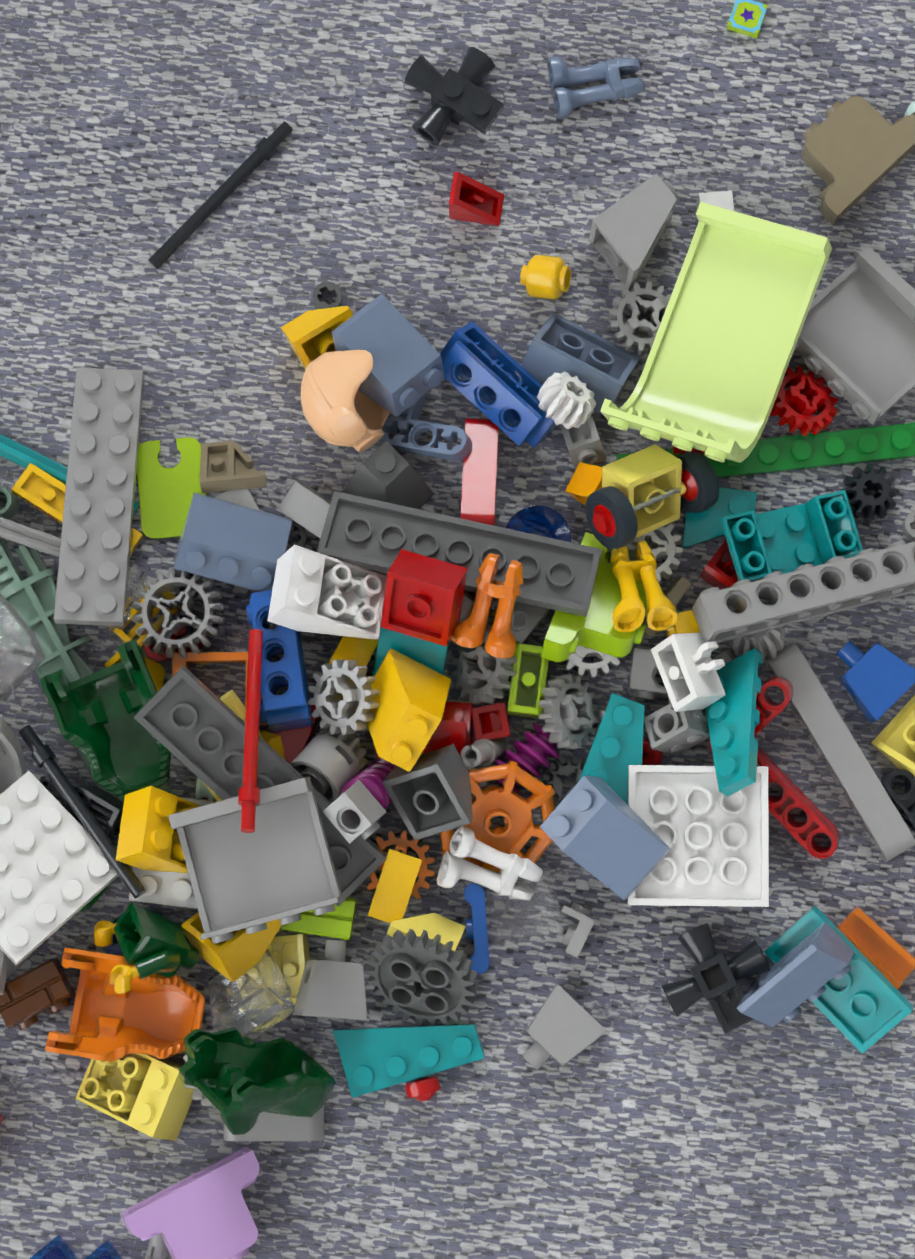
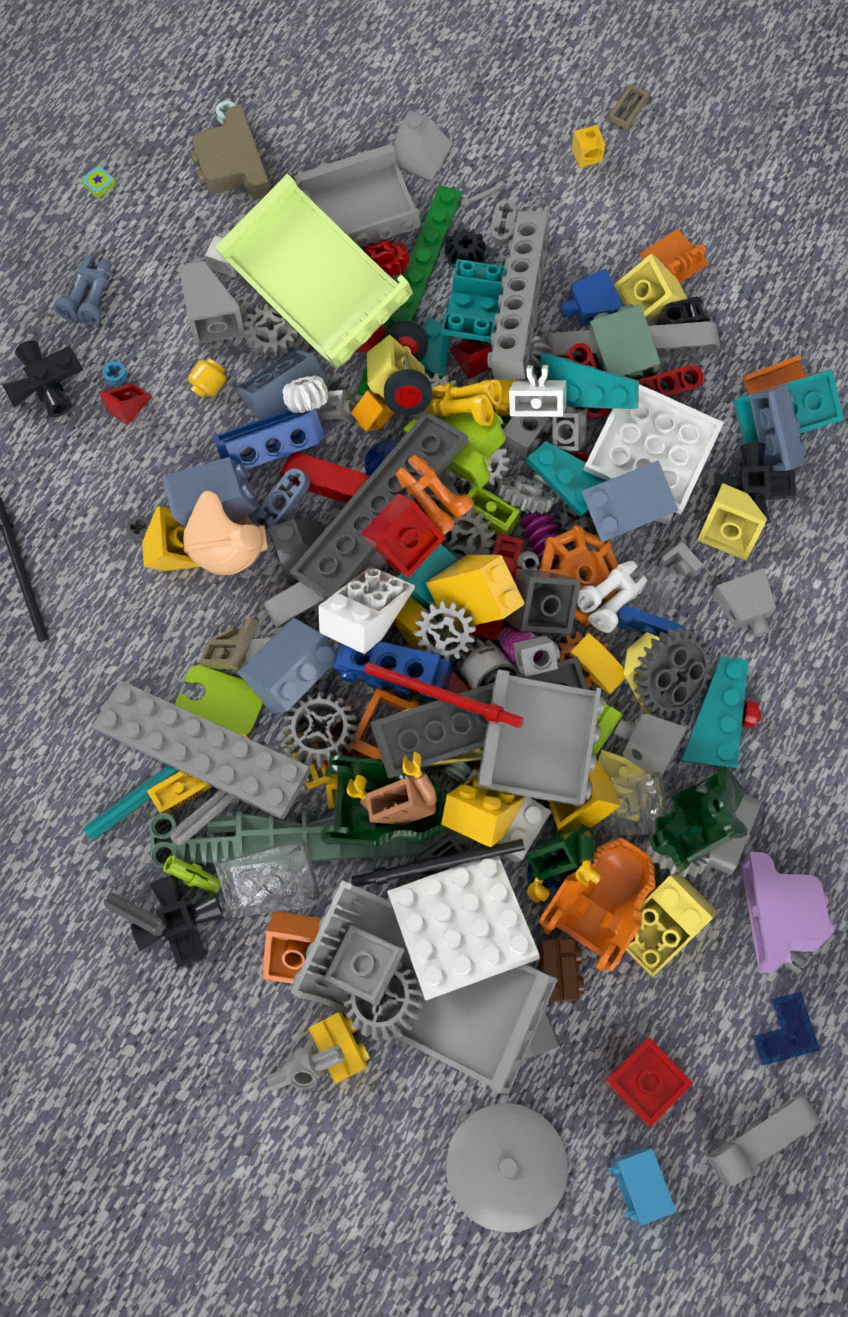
camera: 70 degrees left, 10 degrees down
(119, 738) = (400, 801): none -> nougat torso
(502, 160) = (119, 367): none -> dark azure bush
(652, 970) = (733, 523): none -> light yellow slope
(812, 743) = (625, 343): none -> sand green slope

